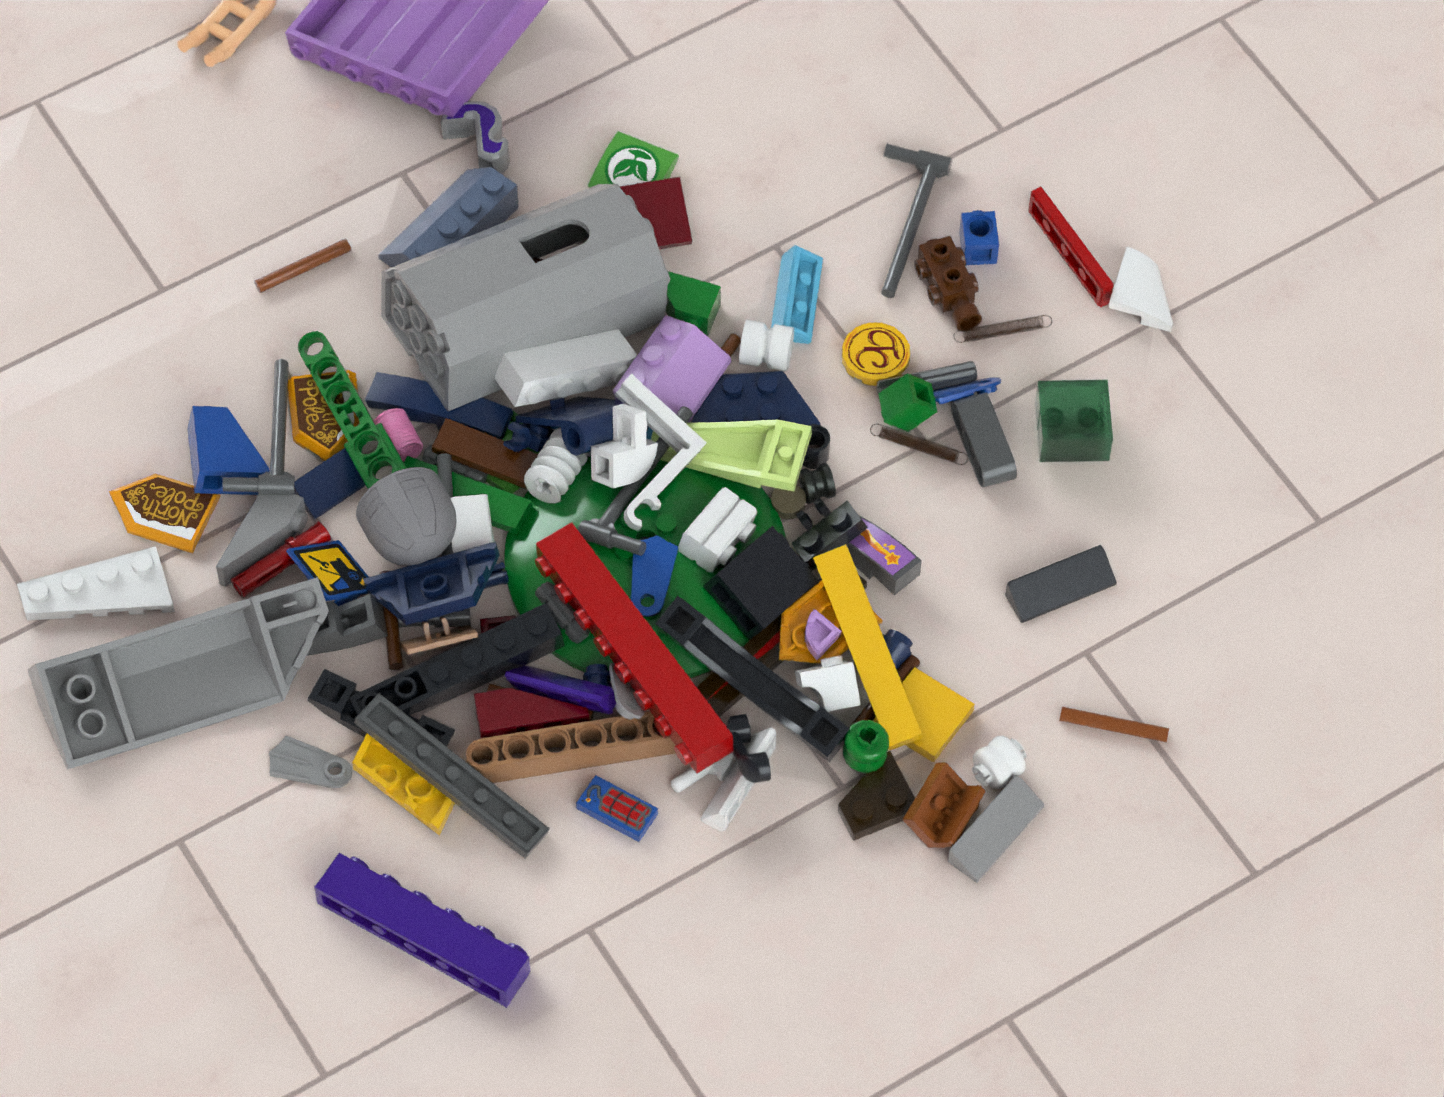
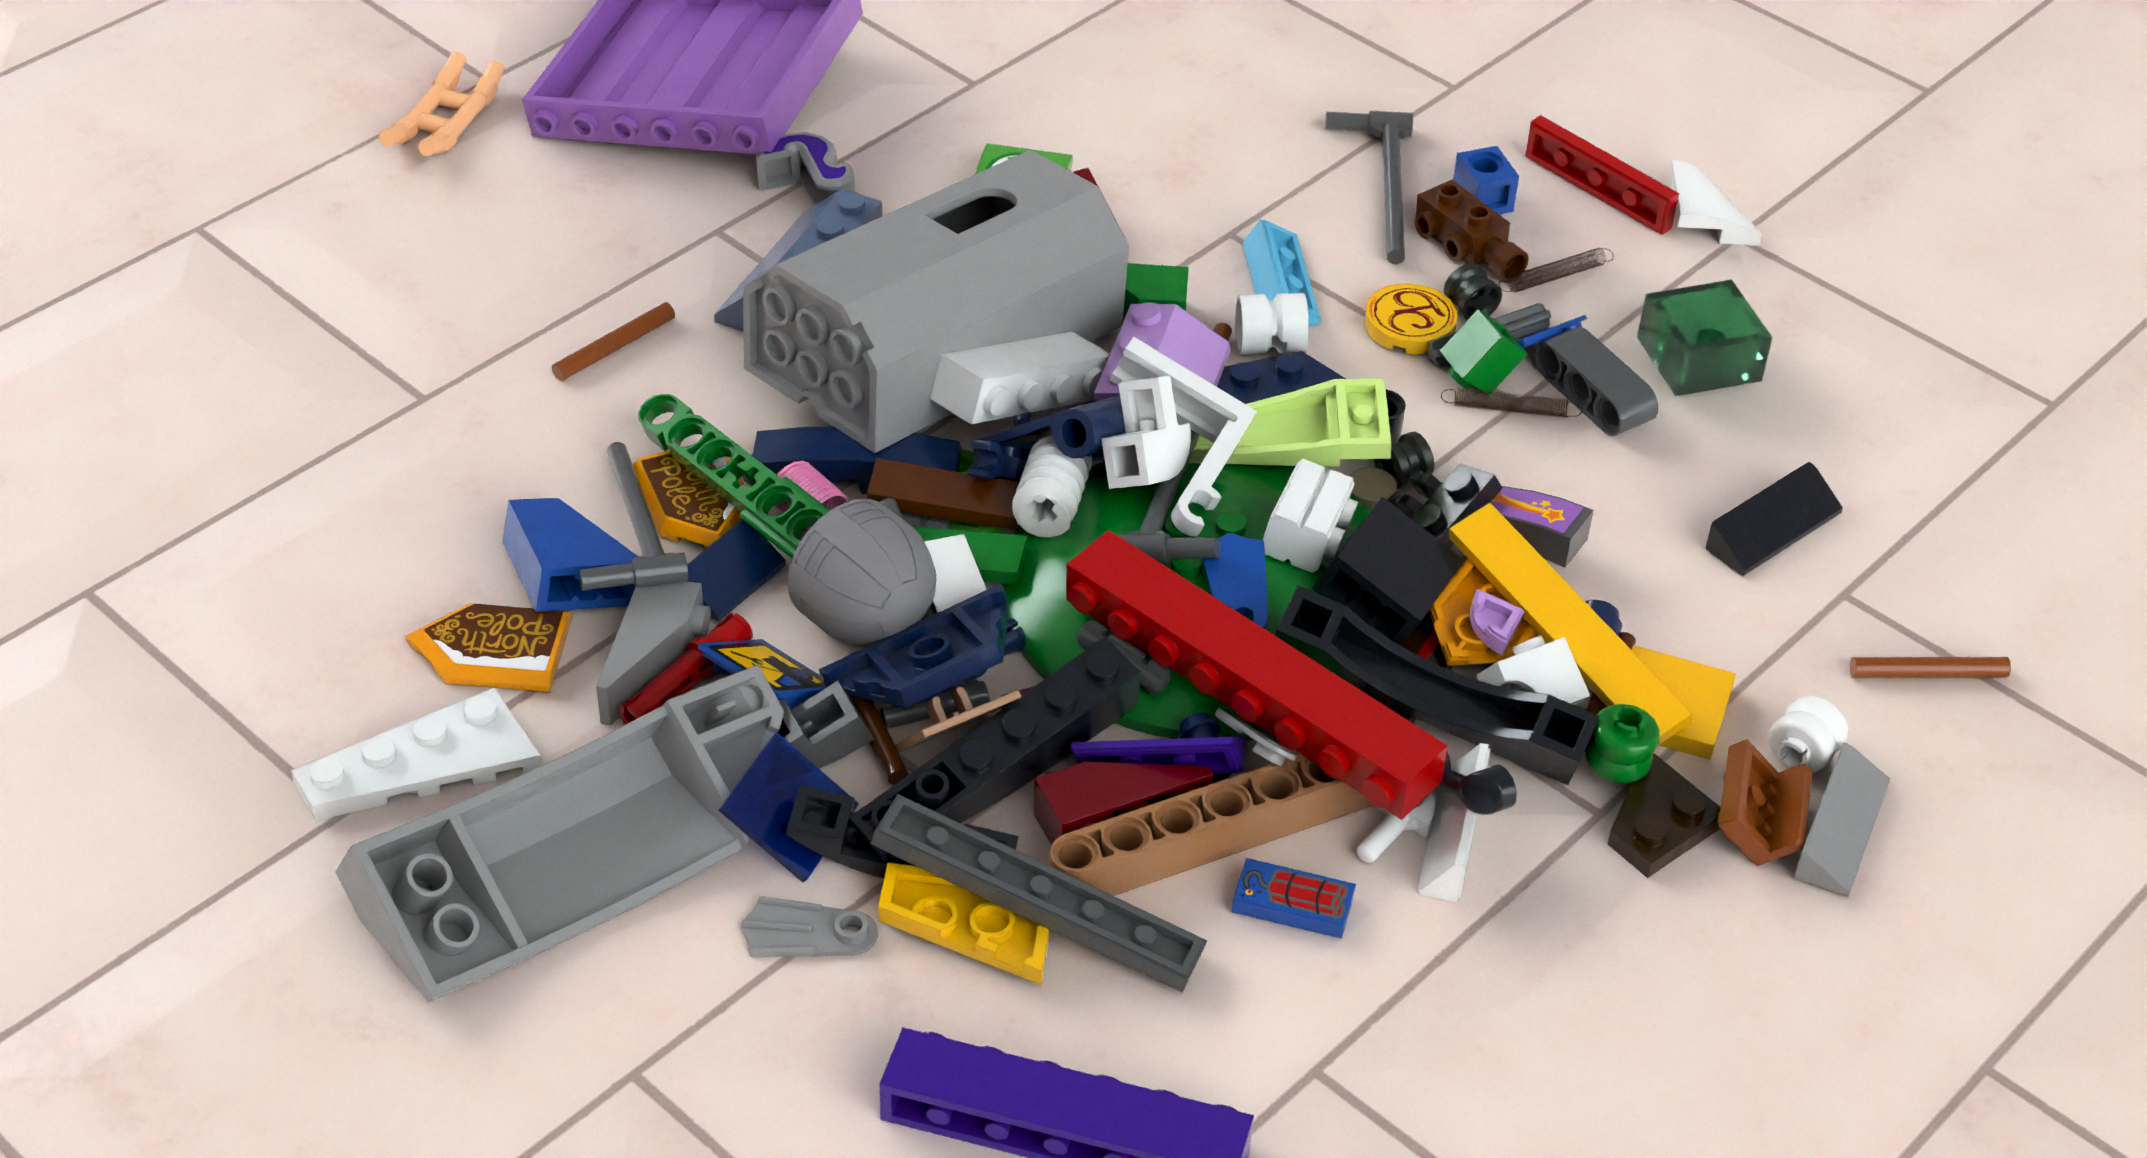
camera: 15 degrees left, 15 degrees down
(302, 669) = (766, 798): none -> clear blue piece
(927, 342) = (1472, 290): none -> pearl dark grey wheel

